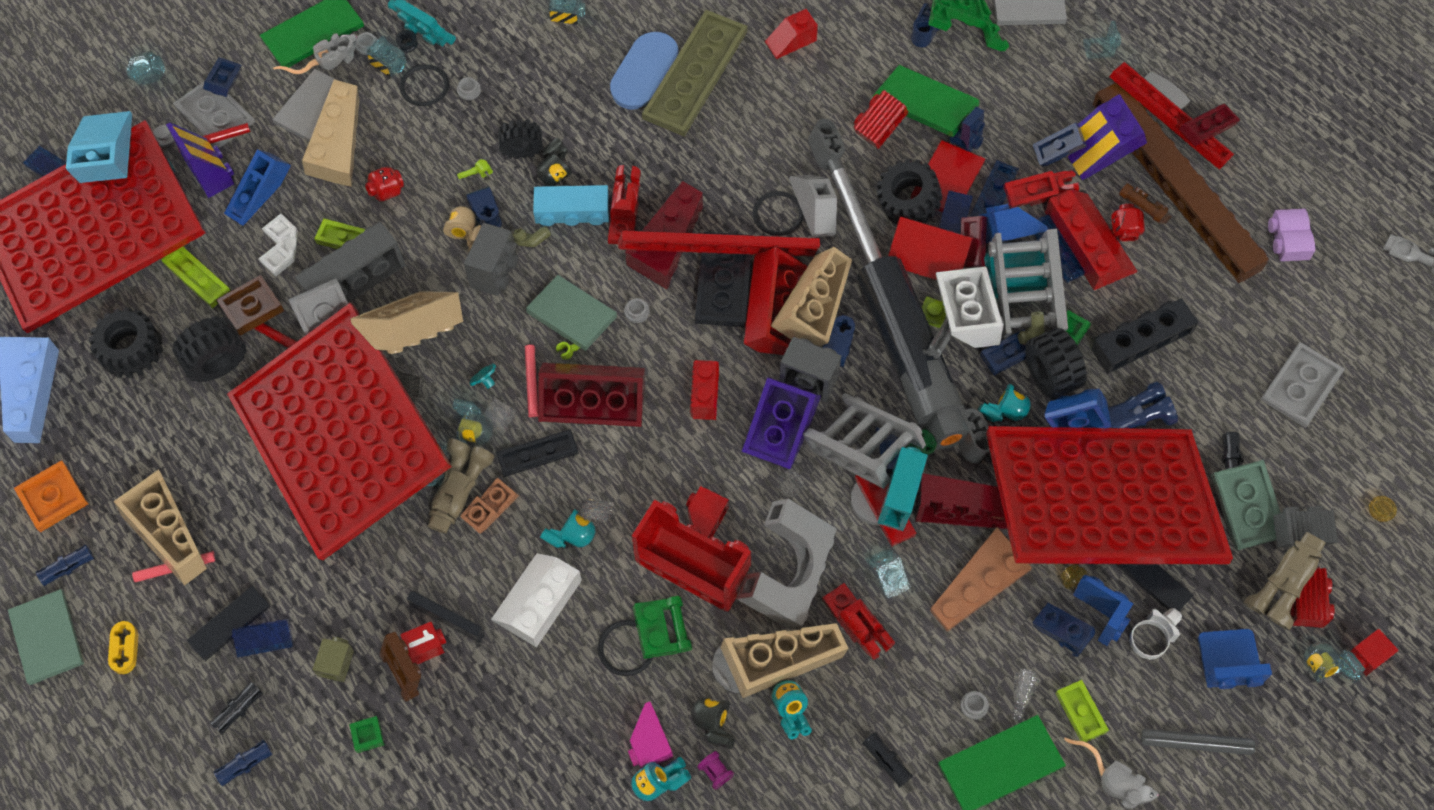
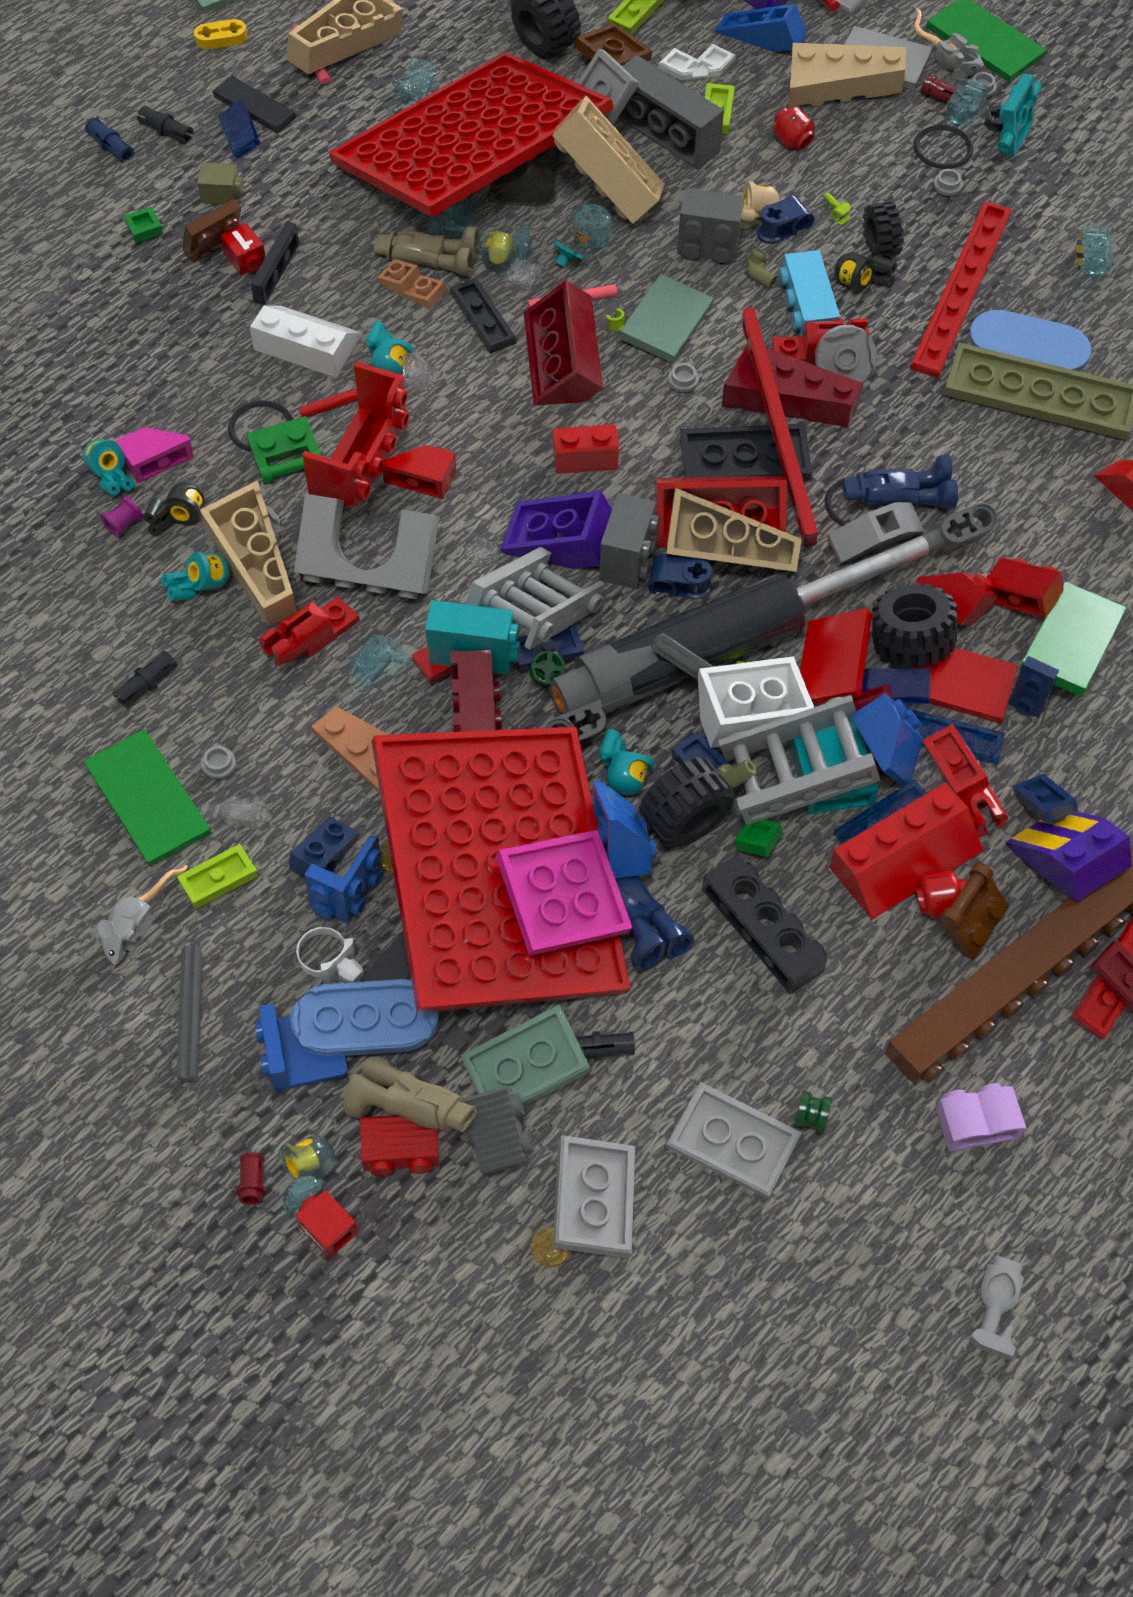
camera: 80 degrees right, 5 degrees down
(240, 473) = (417, 78): none -> clear light blue bracket
(364, 74) = (937, 89): none -> dark red pin
(463, 351) = (592, 226): none -> clear light blue head
(580, 103) = (960, 290): none -> red tile
(609, 576) = (328, 403): none -> red bar
(646, 189) = (847, 352): none -> light grey tile
(776, 177) = (891, 486): none -> dark blue piece
(877, 159) = (968, 591): none -> red slope
(1133, 453) = (563, 892): none -> dark pink plate
(1211, 613) = (361, 1019): none -> medium blue tile
(1287, 330) = (813, 1112): none -> dark green wheel
(1335, 704) = (251, 1179): none -> dark red pin
(1349, 475) = (594, 1197): none -> light grey tile

